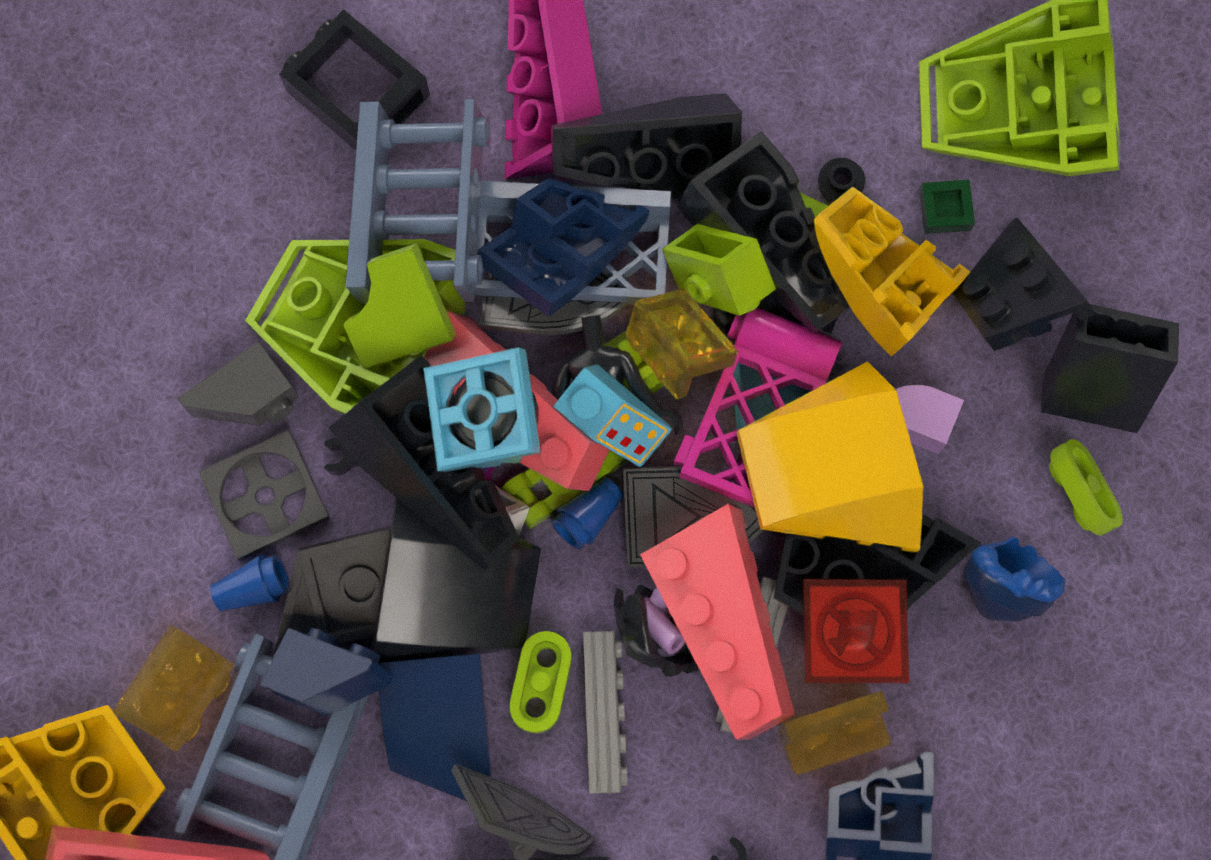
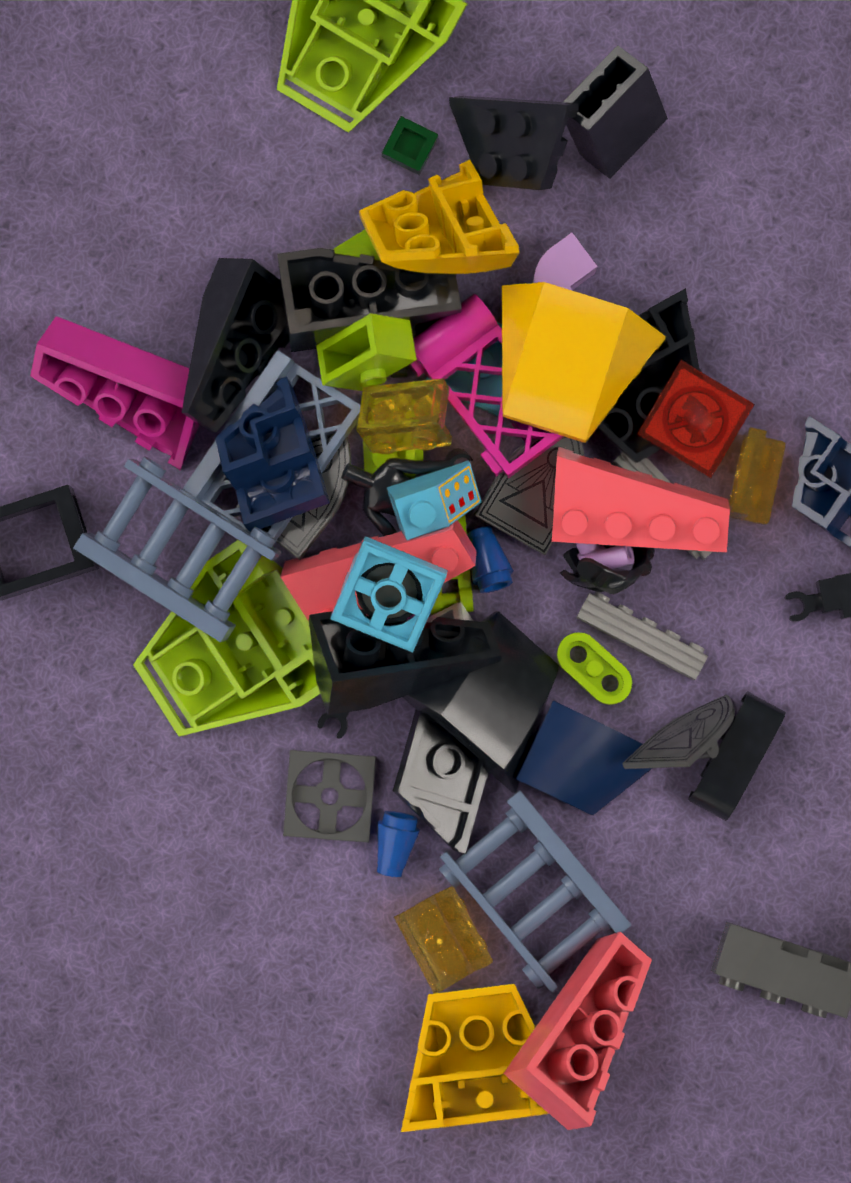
camera: 60 degrees left, 10 degrees up
(243, 391) = (241, 766): dark grey slope -> none
(320, 674) = (504, 824): dark blue slope -> none
(401, 310) = (267, 612): lime tile -> none
(830, 188) = (344, 224): black plate -> none
(1012, 581) = (723, 281): hair -> none
(1086, 487) = (685, 183): lime plate -> none

